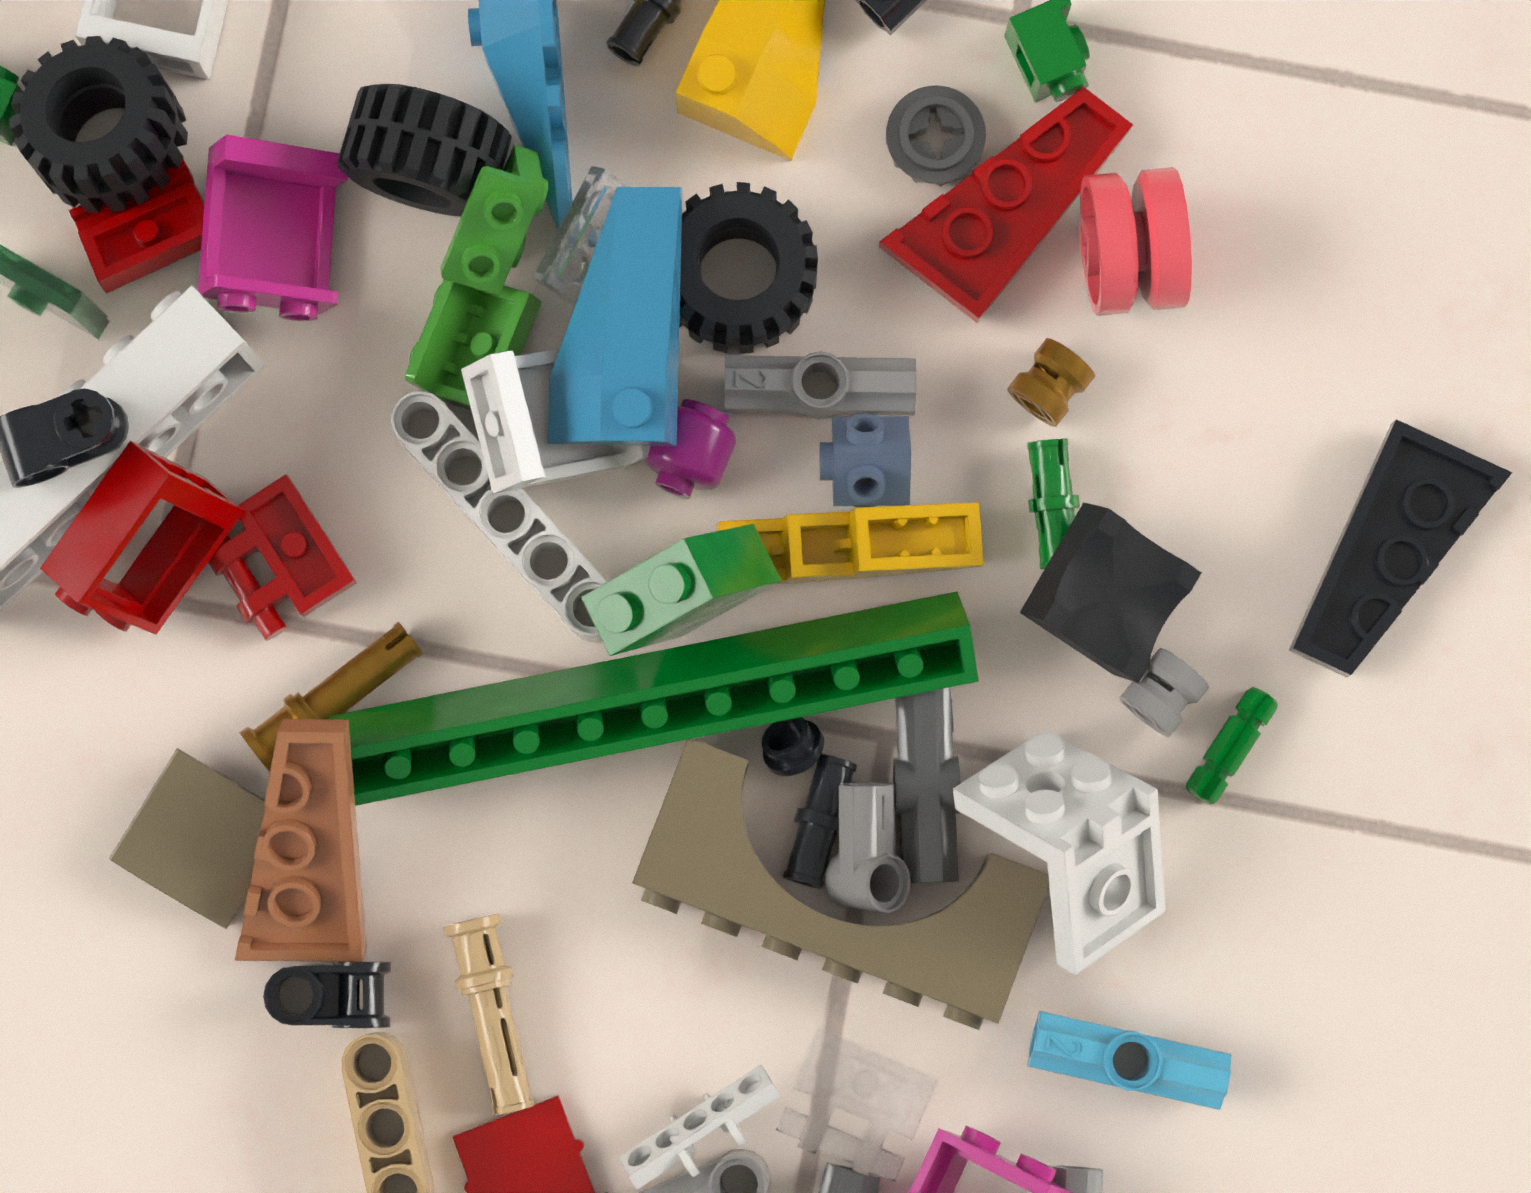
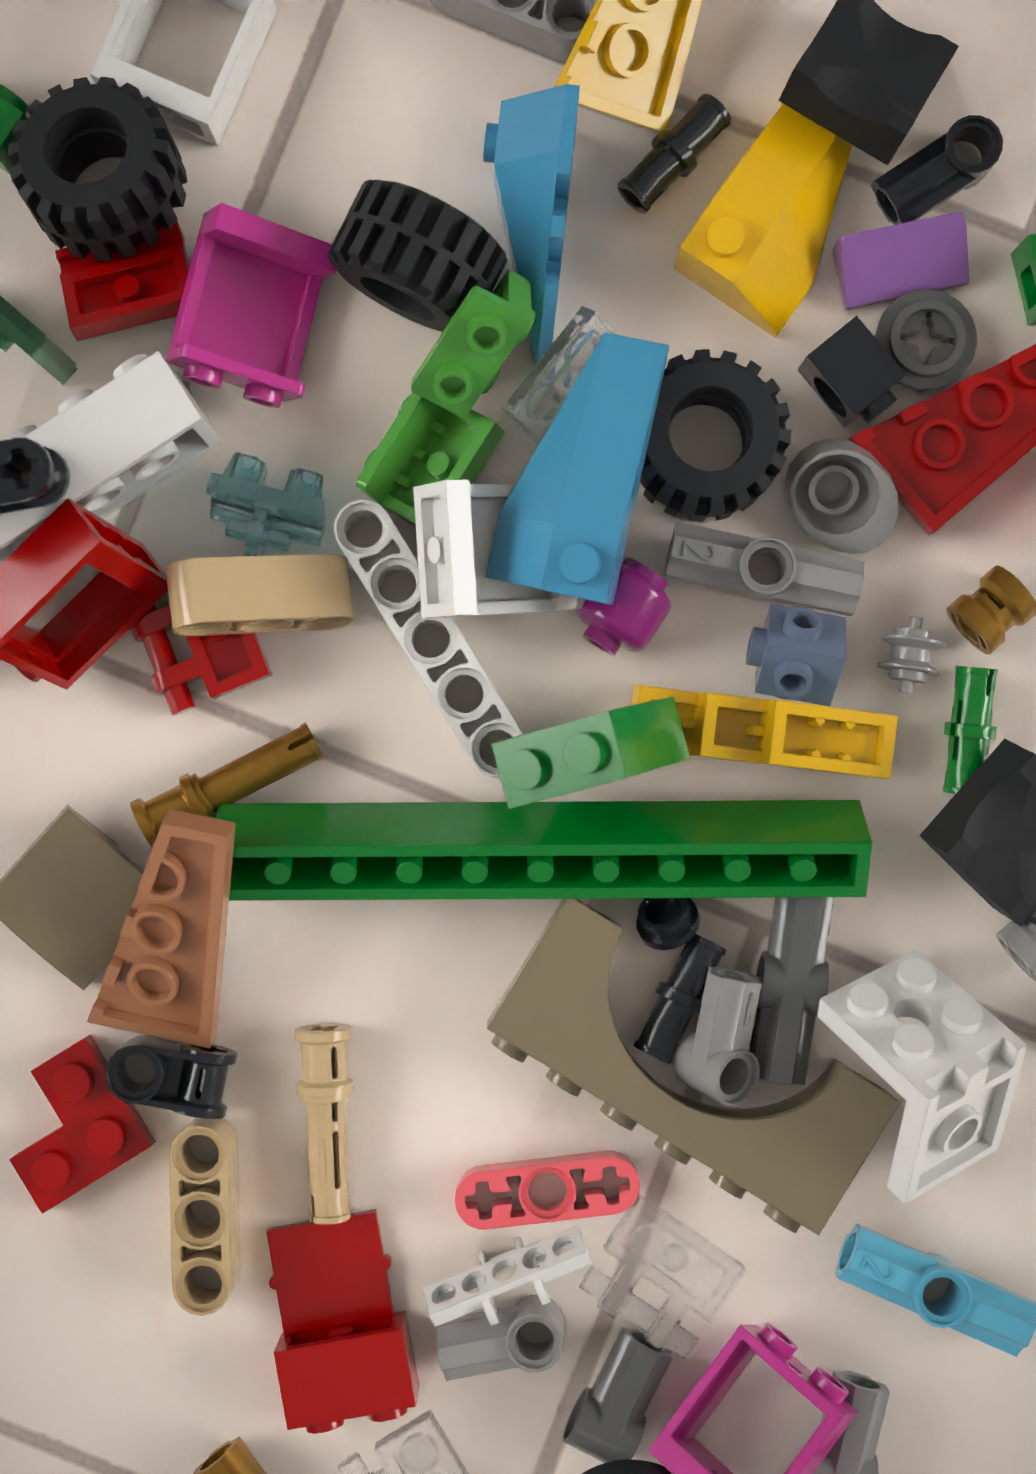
camera: 10 degrees right, 5 degrees up
(264, 1069) = (95, 1132): none -> red plate
(322, 424) = (263, 513): none -> clear light blue hips
(331, 502) = (259, 594): none -> tan beam
(684, 1069) = (566, 1209): none -> coral beam
(869, 181) = (852, 374): none -> black brick
(883, 300) = (842, 496): none -> light grey hat
(896, 62) = (902, 258): none -> medium lavender slope
(980, 441) = (910, 655): none -> light grey wheel

